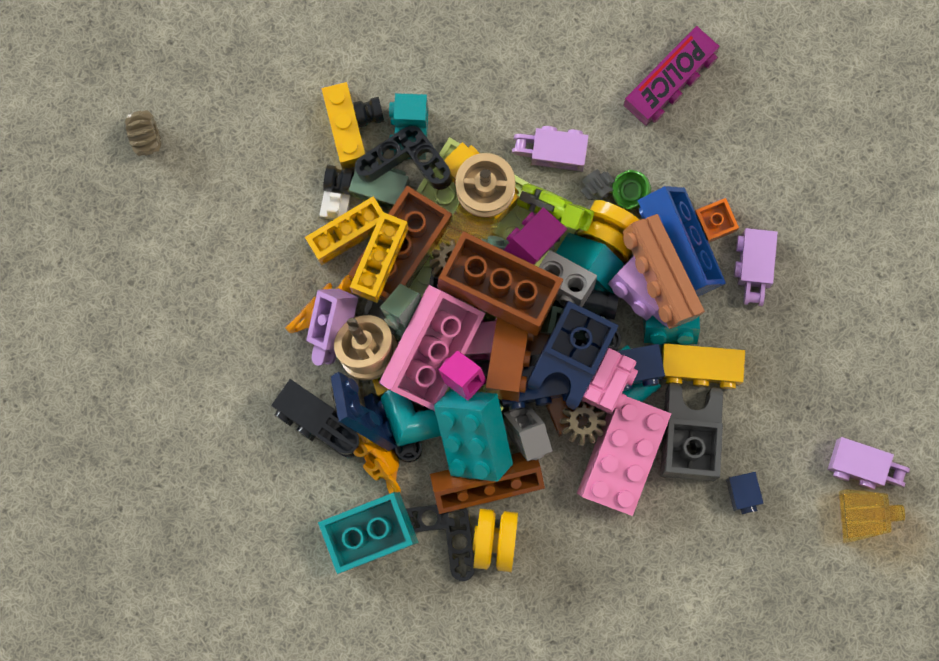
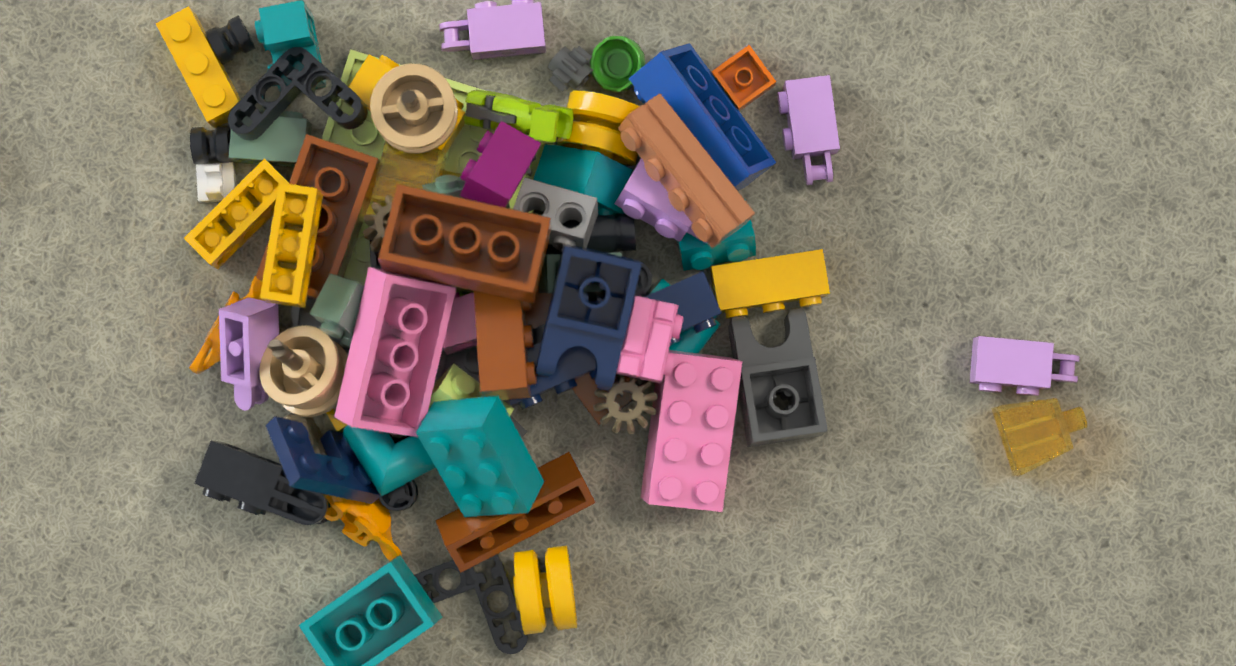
camera: 20 degrees left, 5 degrees up
(462, 375) = (444, 382): dark pink brick -> none
(528, 433) = (555, 434): light grey brick -> none
(744, 492) = (866, 442): dark blue brick -> none

